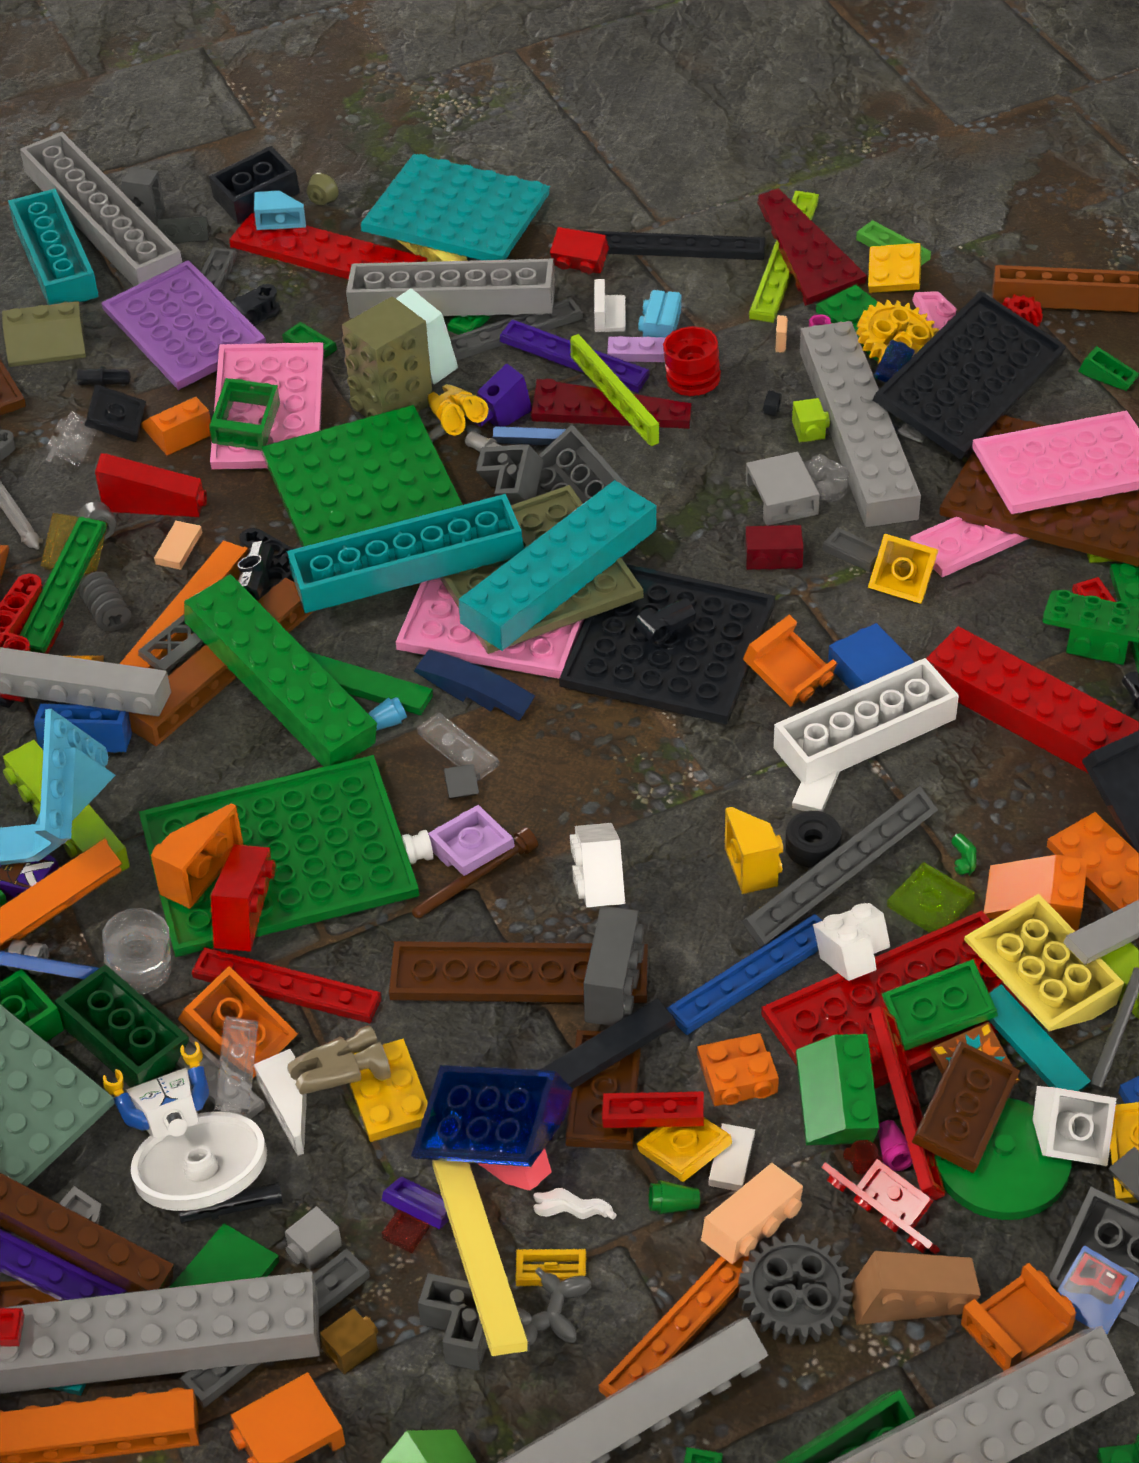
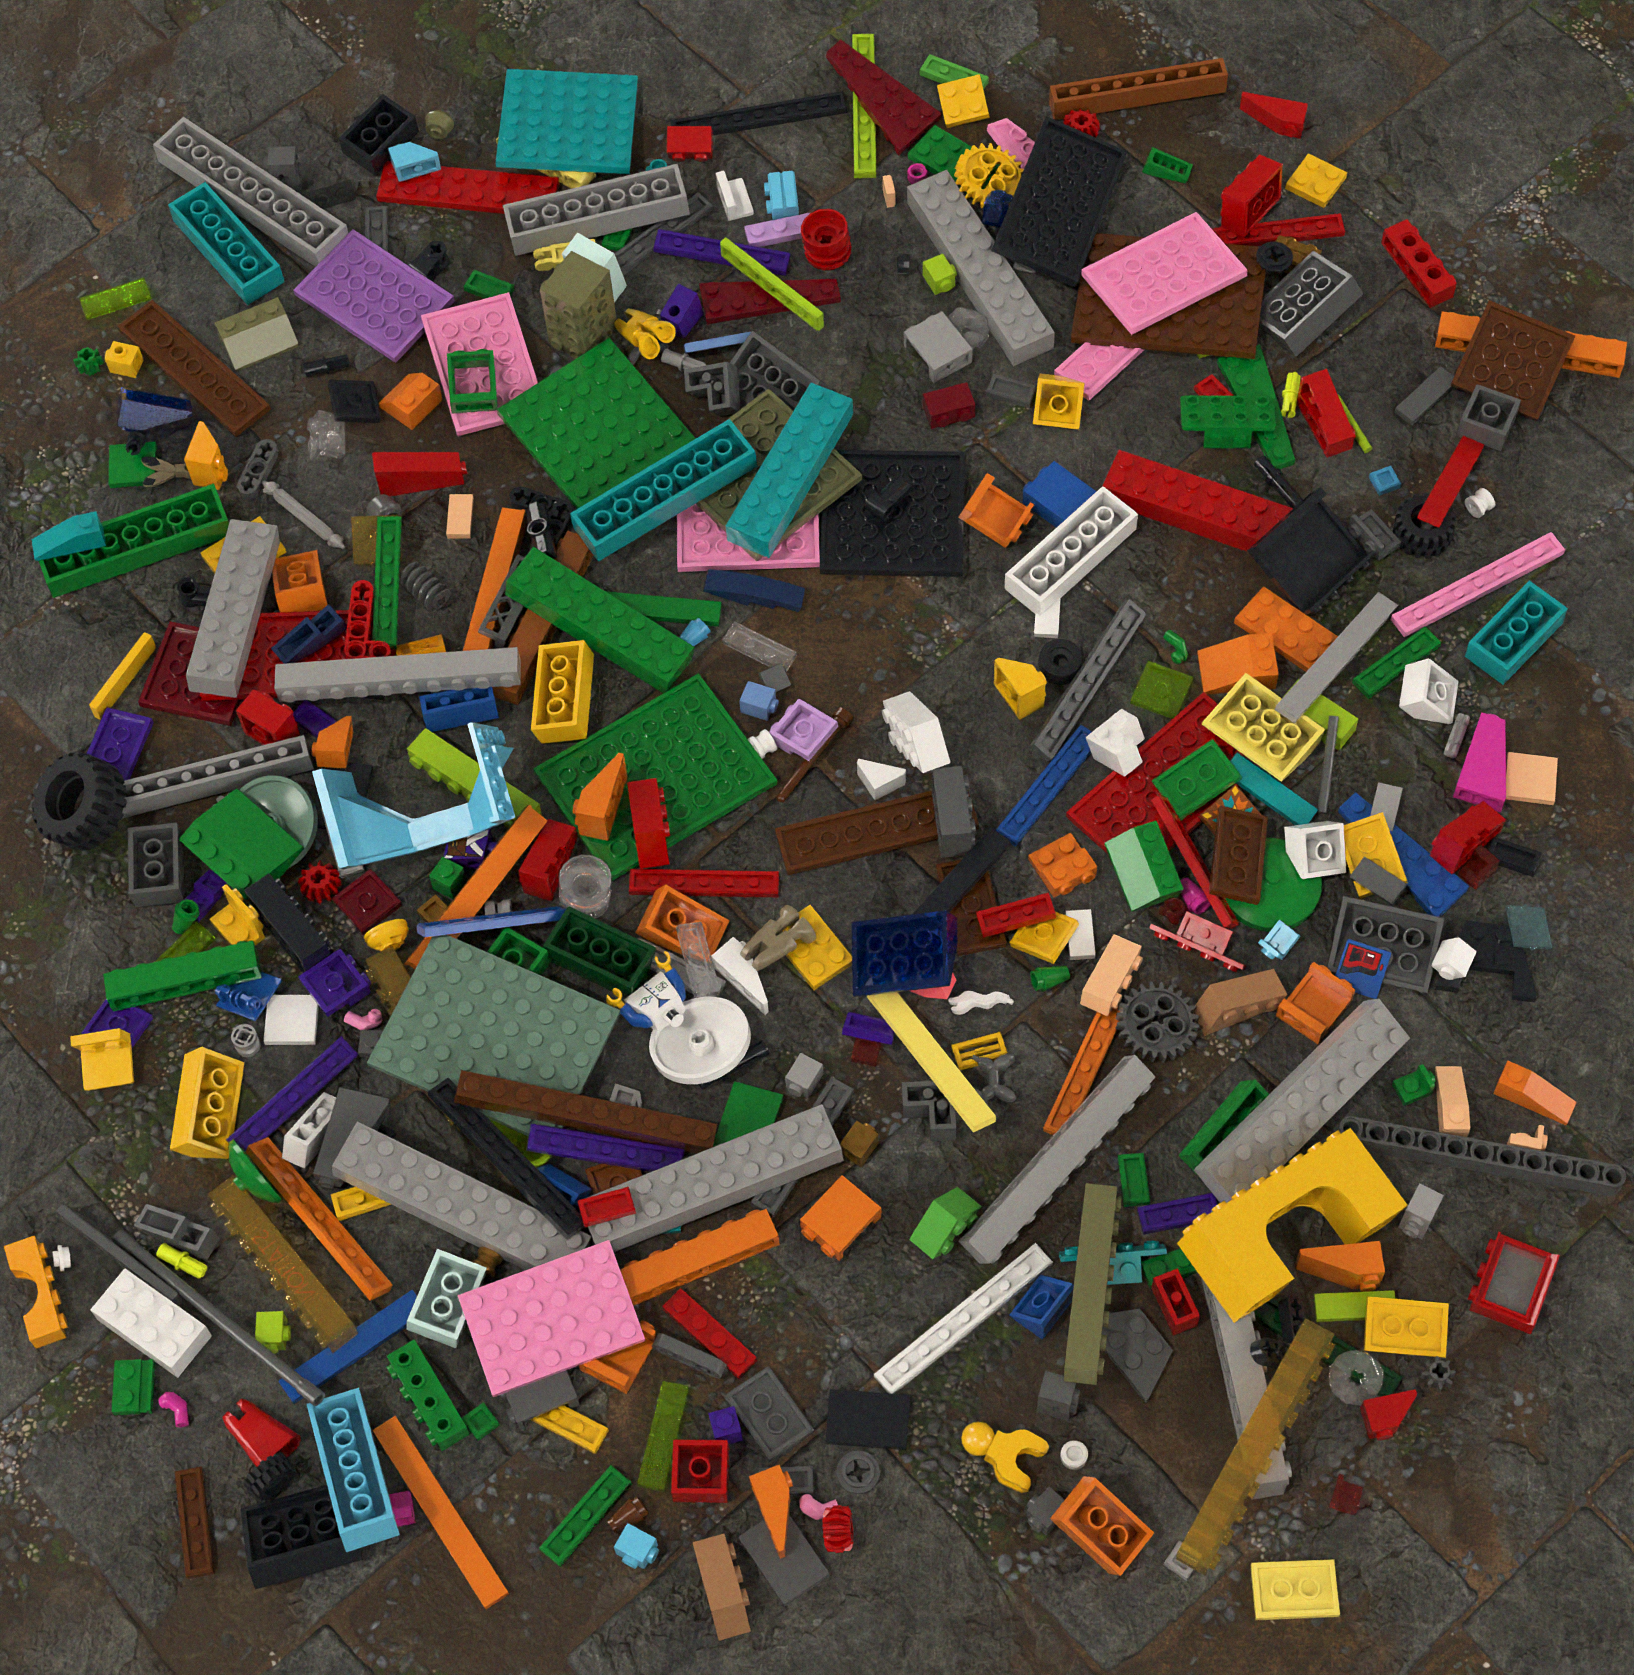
camera: 15 degrees left, 15 degrees up
(90, 911) = (546, 858): none -> red wedge
(206, 737) = (562, 692): none -> yellow brick
(431, 800) = (758, 701): none -> medium blue brick
(546, 916) = (880, 778): none -> white slope
(991, 1228) = (1279, 941): none -> medium azure bracket

